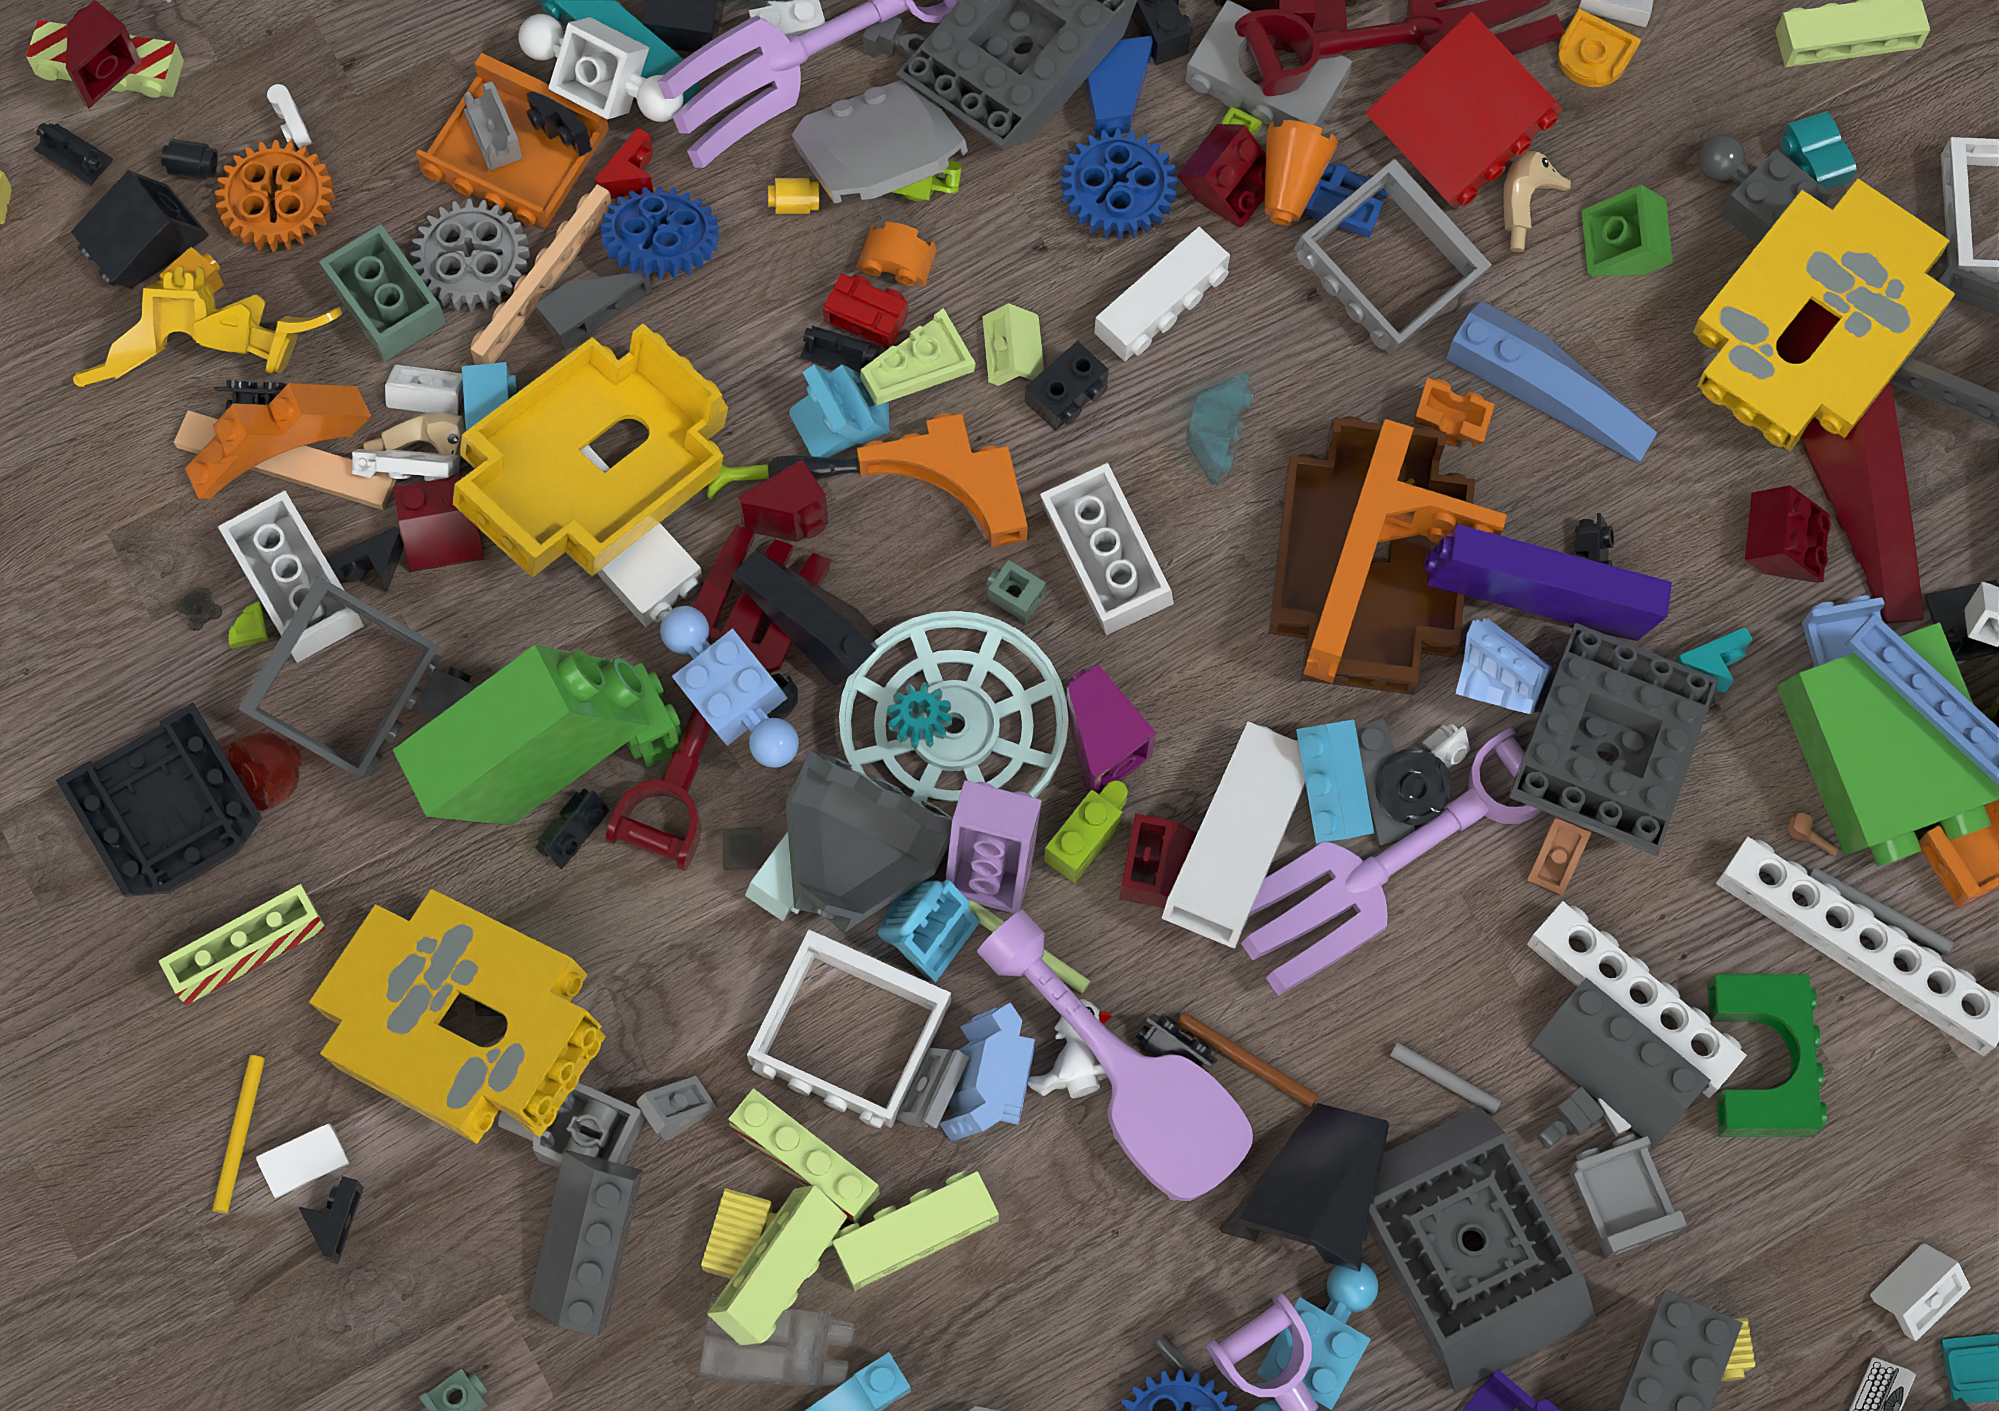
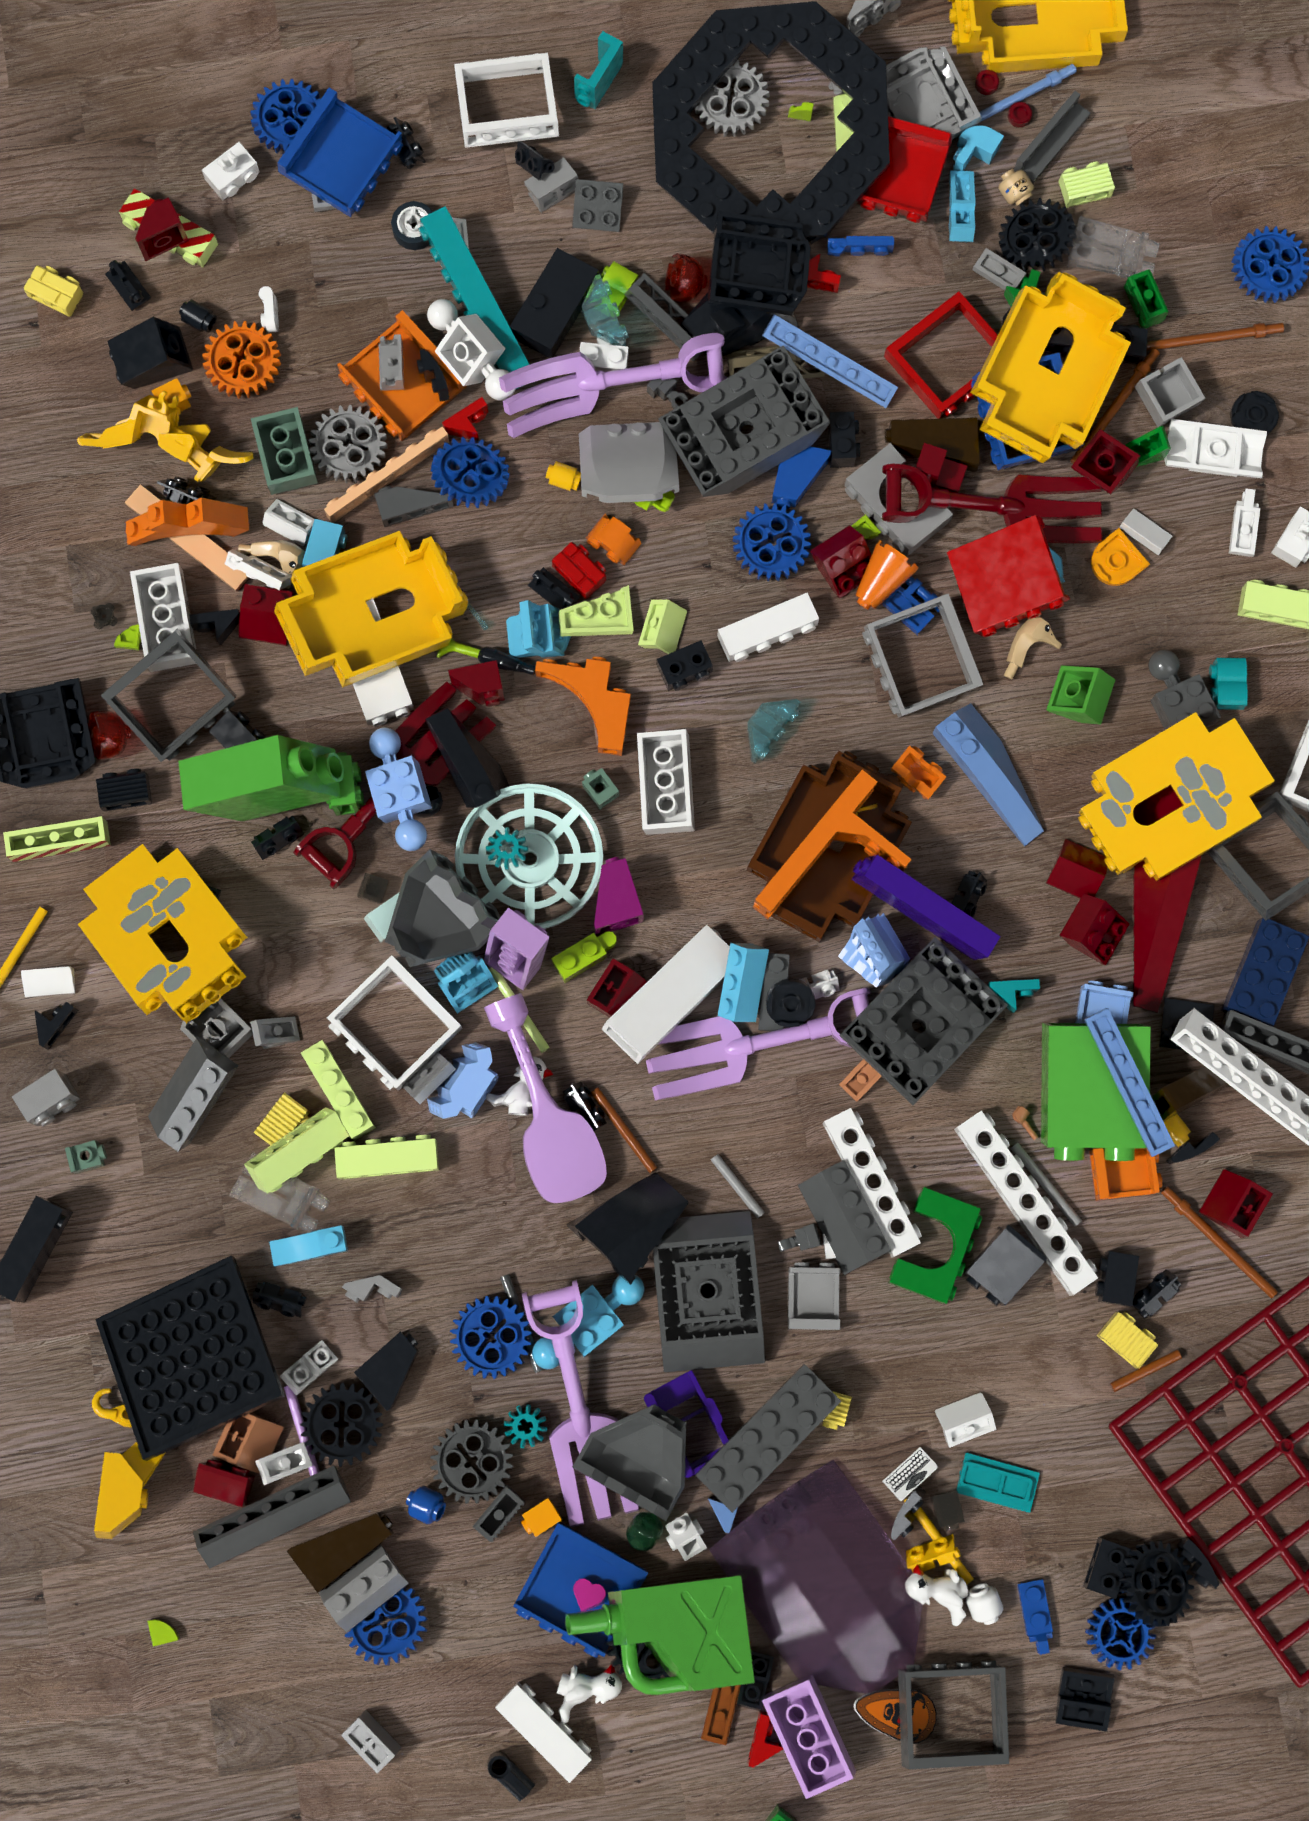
camera: 20 degrees right, 10 degrees up
(318, 841) = (123, 790): none -> black brick
(364, 1332) = (46, 1098): none -> light grey piece
(756, 430) = (484, 626): none -> clear light blue hinge
(1728, 468) = (1077, 870): none -> dark red slope
(1879, 1042) = (1004, 1266): none -> slope

